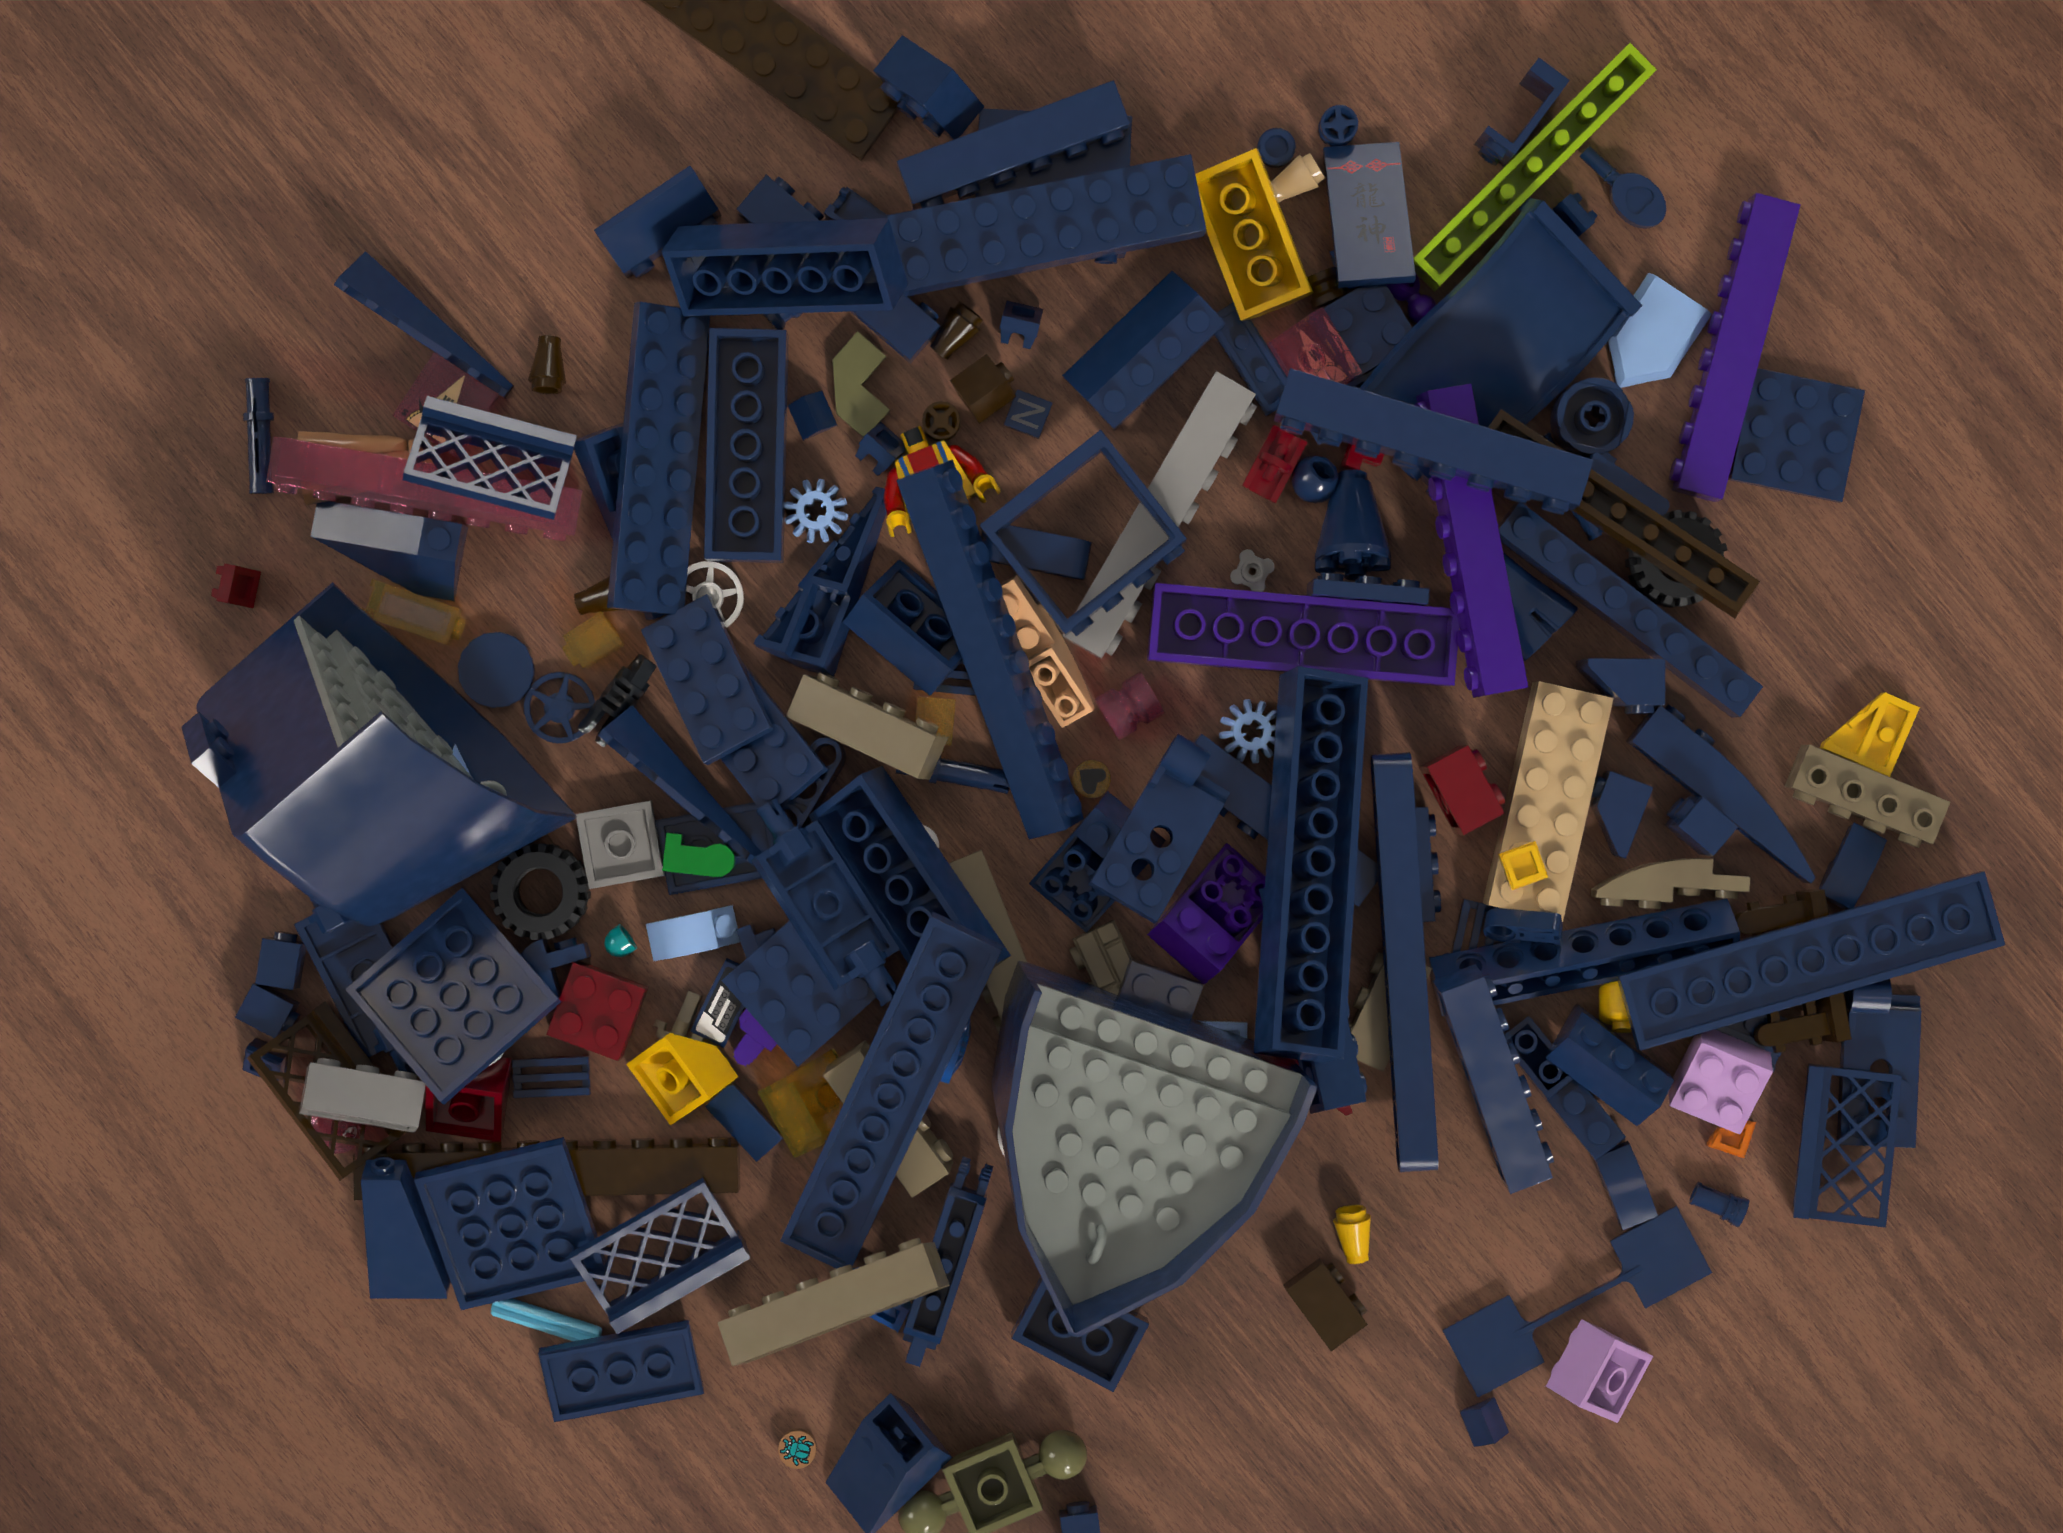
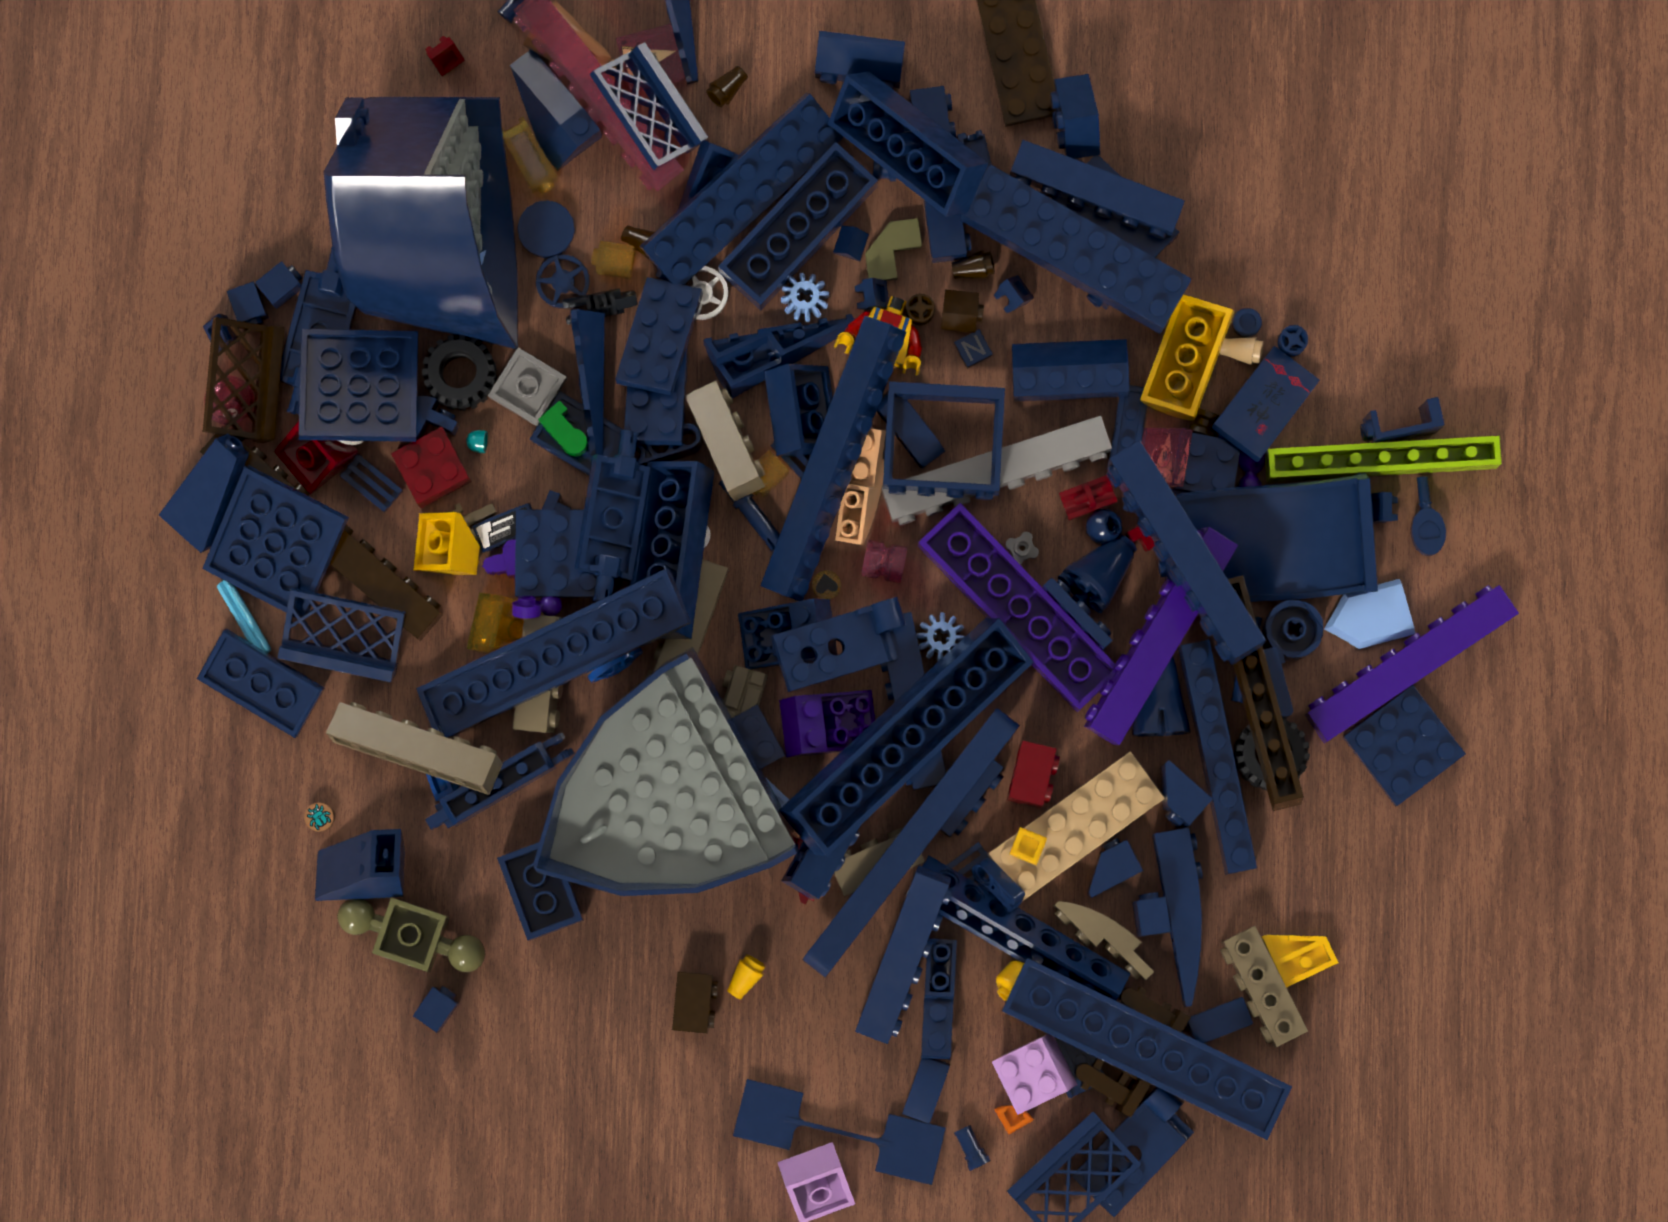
camera: 40 degrees right, 5 degrees down
(362, 1095) = (258, 395): light grey brick -> none
(692, 933) = (523, 471): light blue brick -> none
(744, 1121) = (457, 604): dark blue slope -> none
(824, 1066) = (529, 607): none -> dark purple plate
(1484, 1422) = (723, 1154): dark blue slope -> none
(1609, 1066) = (976, 1008): dark blue slope -> none

